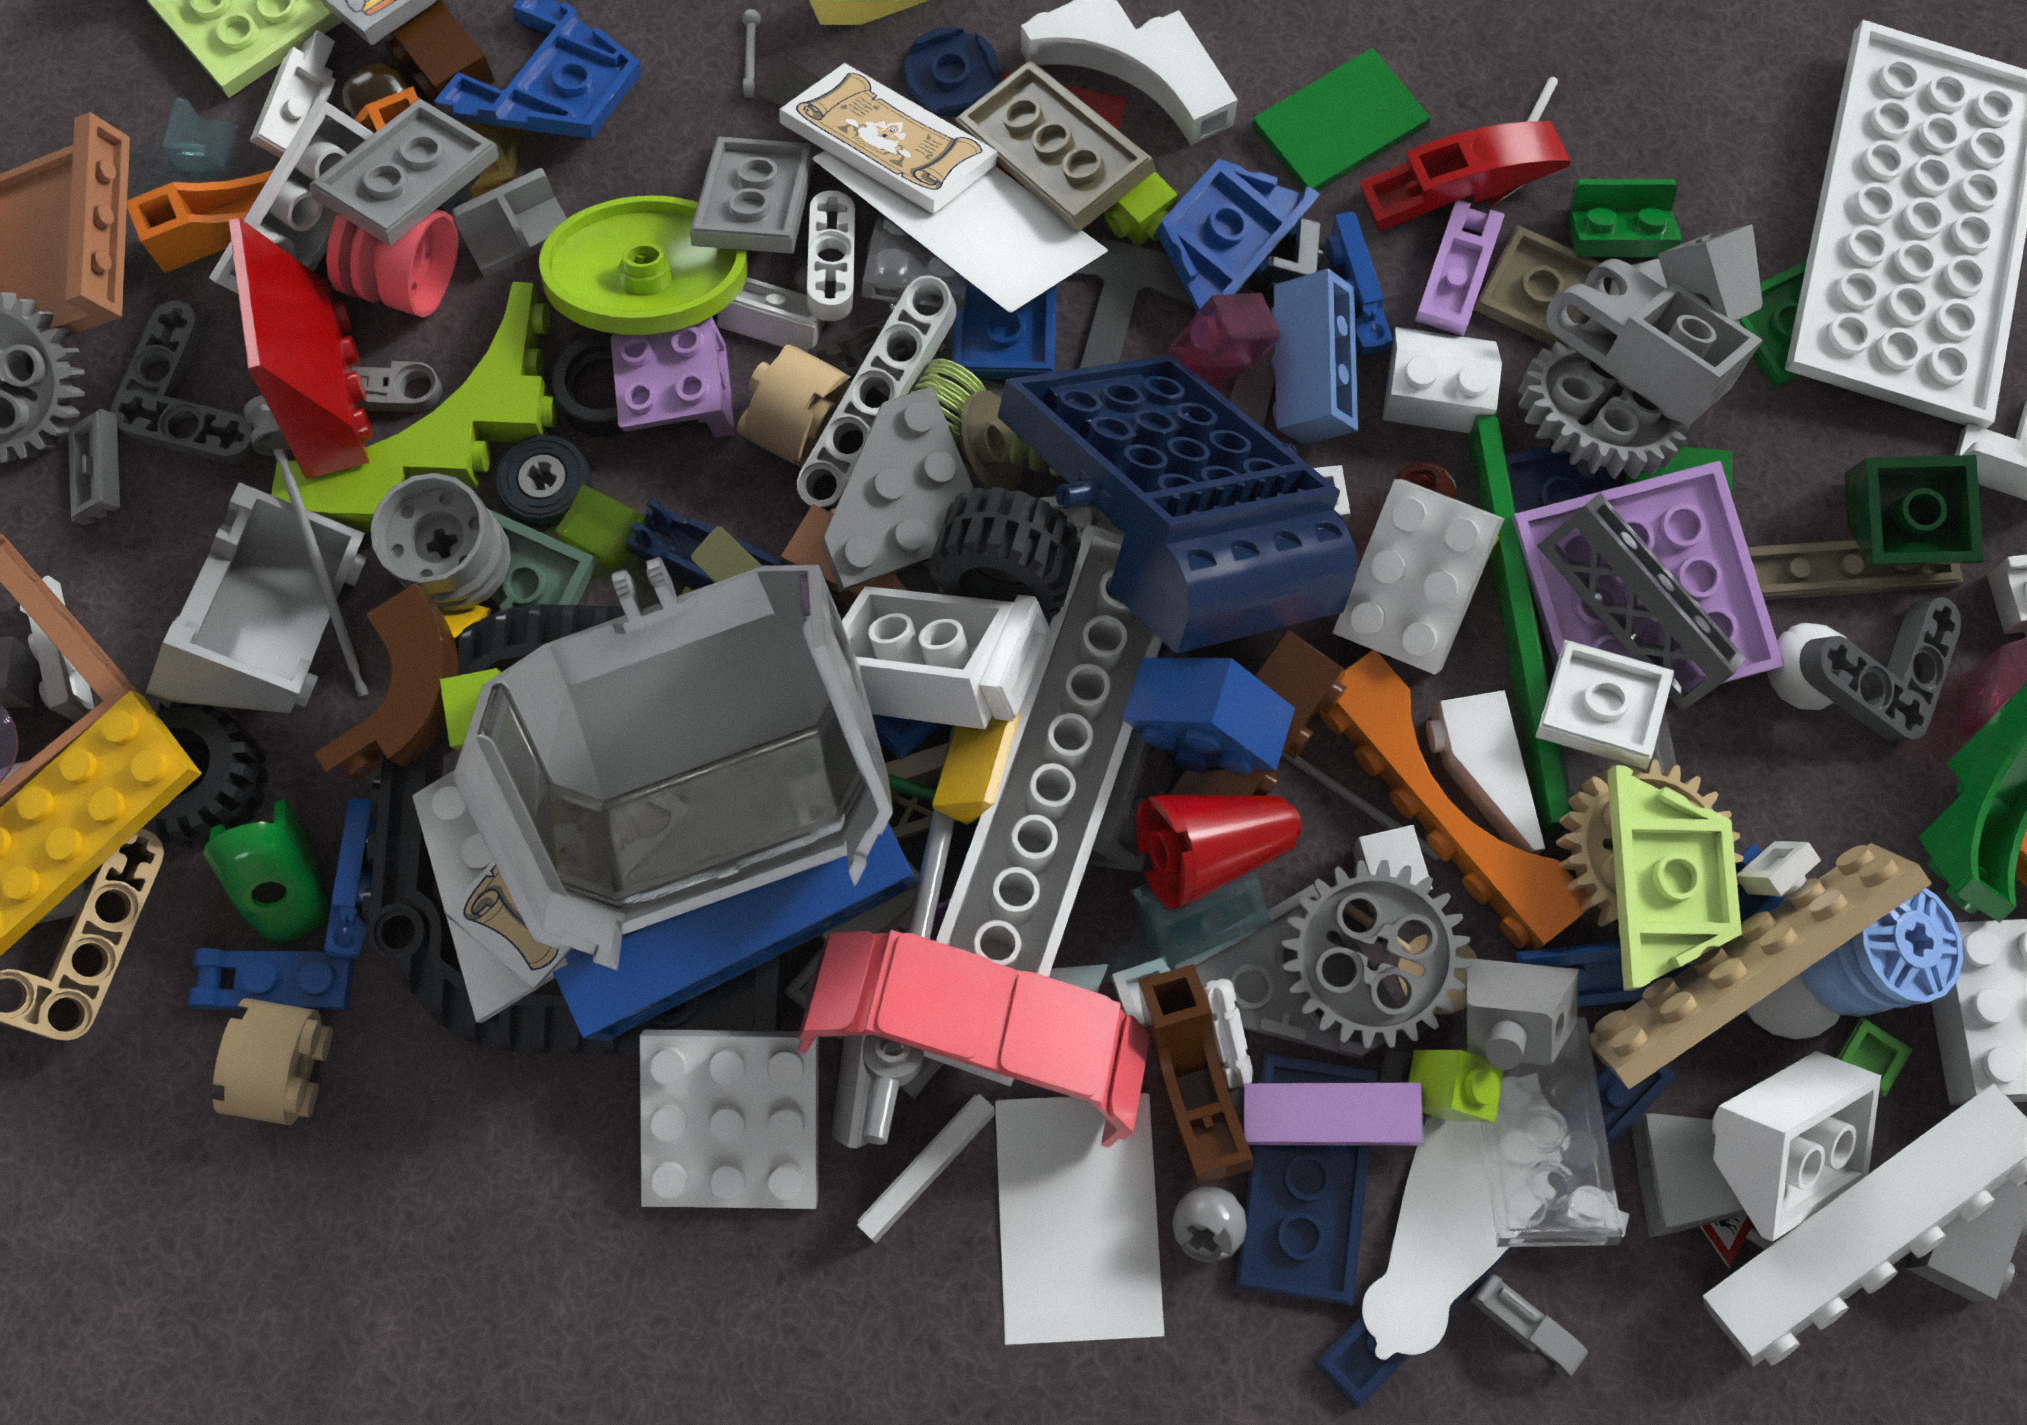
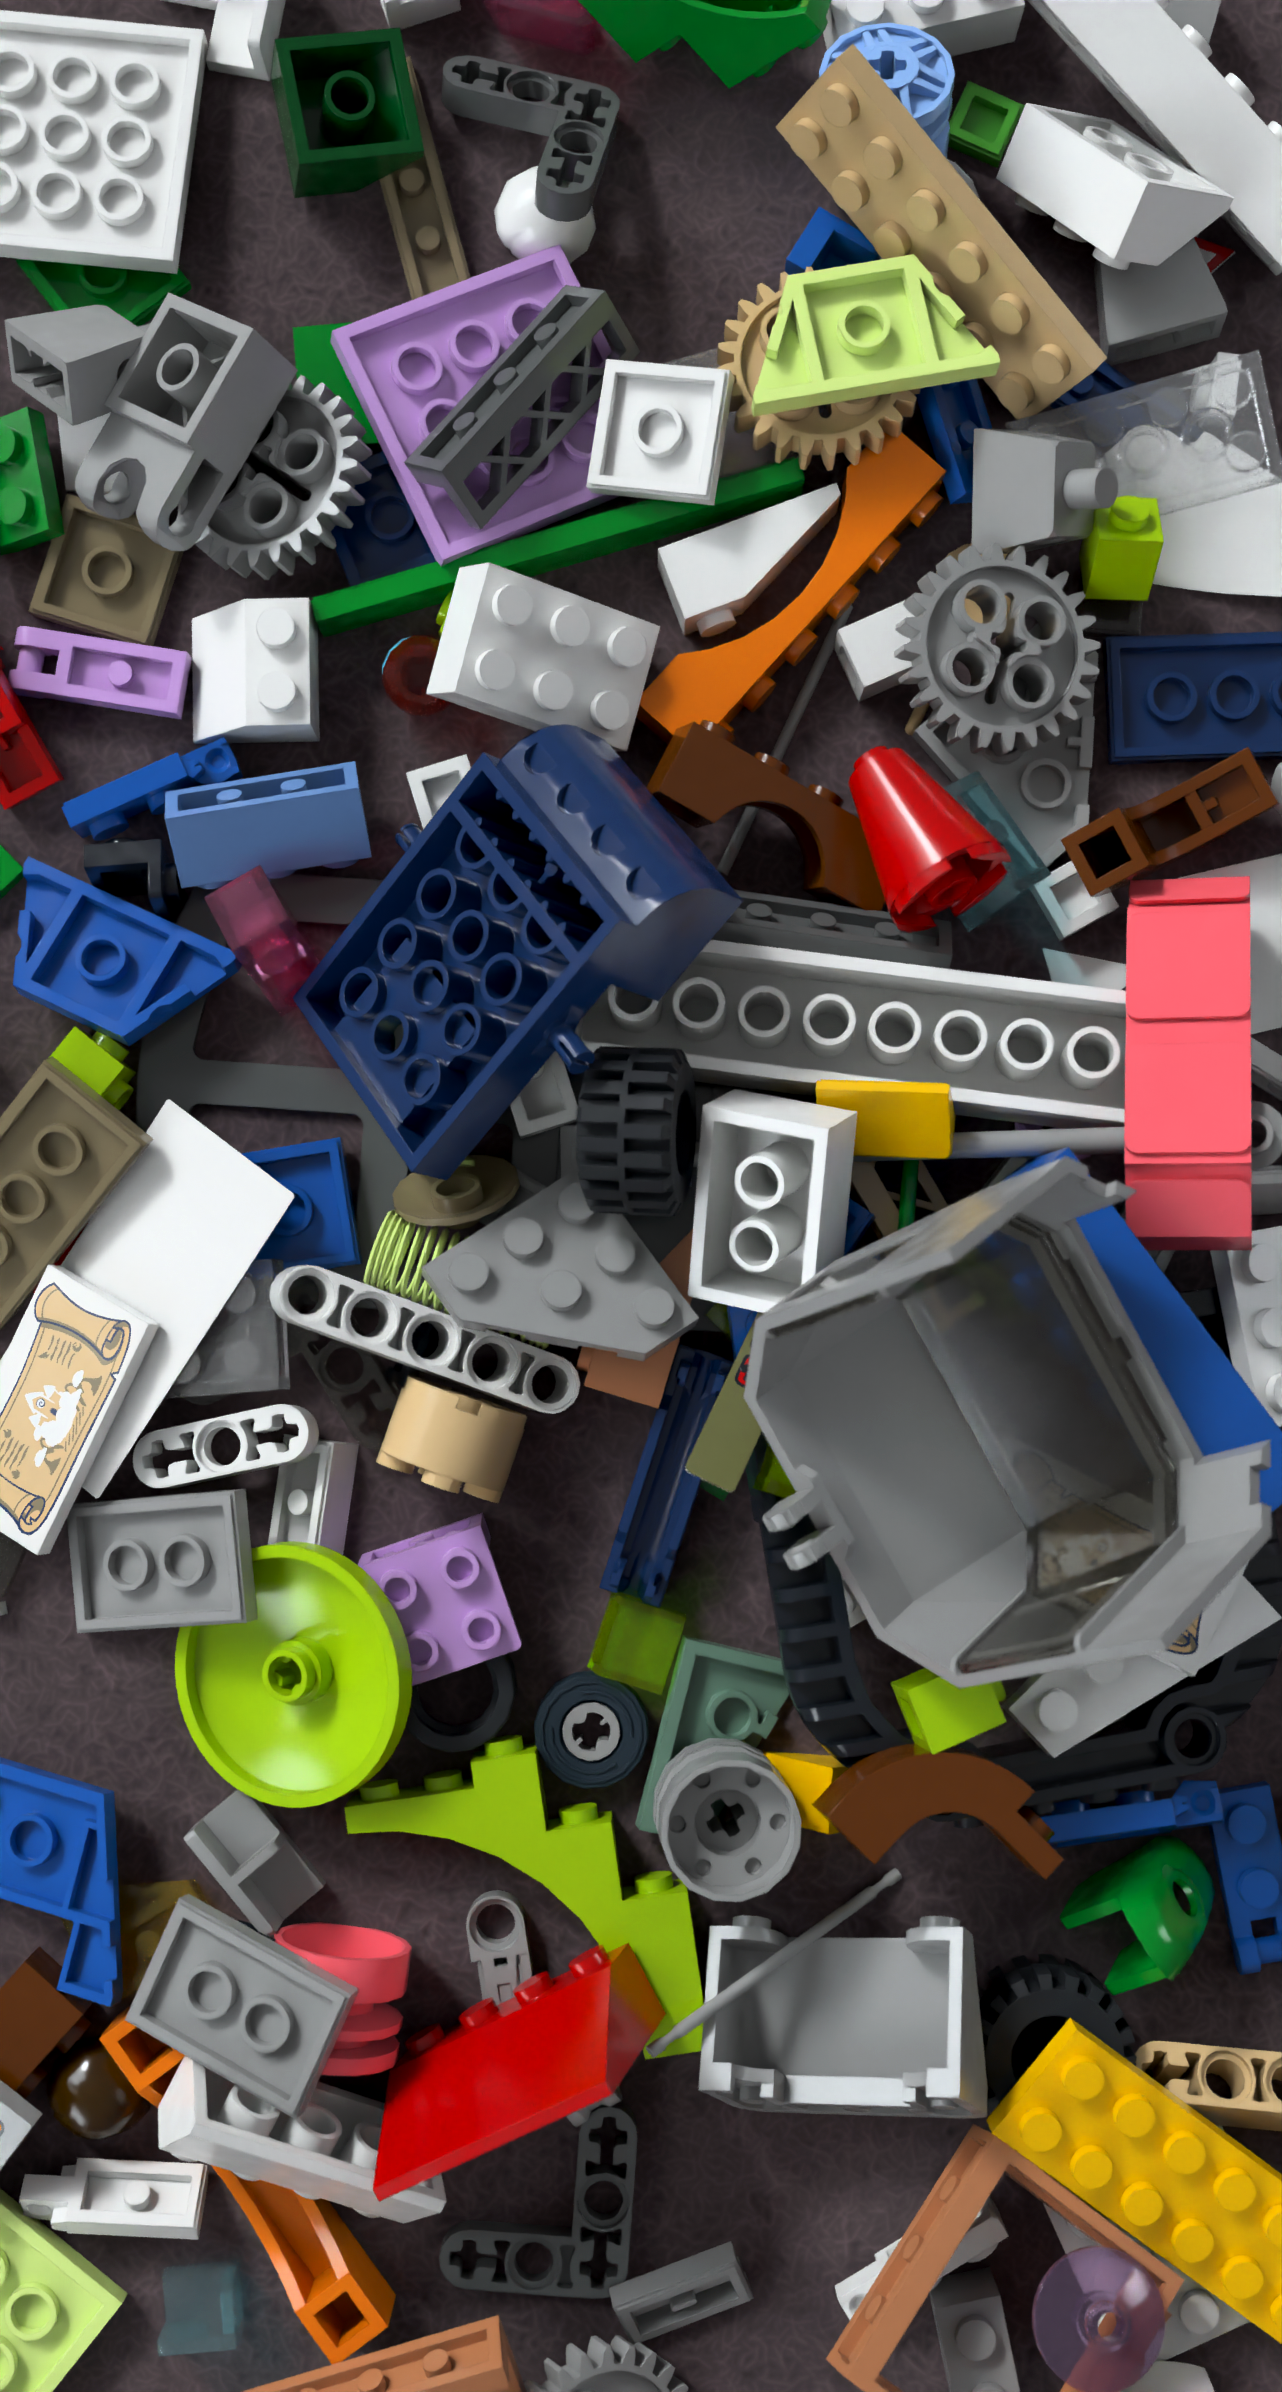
camera: 105 degrees left, 15 degrees up
(1015, 658) = (765, 1092): white tile -> none
(1208, 714) = (787, 864): blue piece -> none
(1228, 1033) = (1103, 798): white axle -> none
(1333, 1114) = (1176, 671): lavender tile -> none
(1779, 869) = (823, 223): white plate -> none

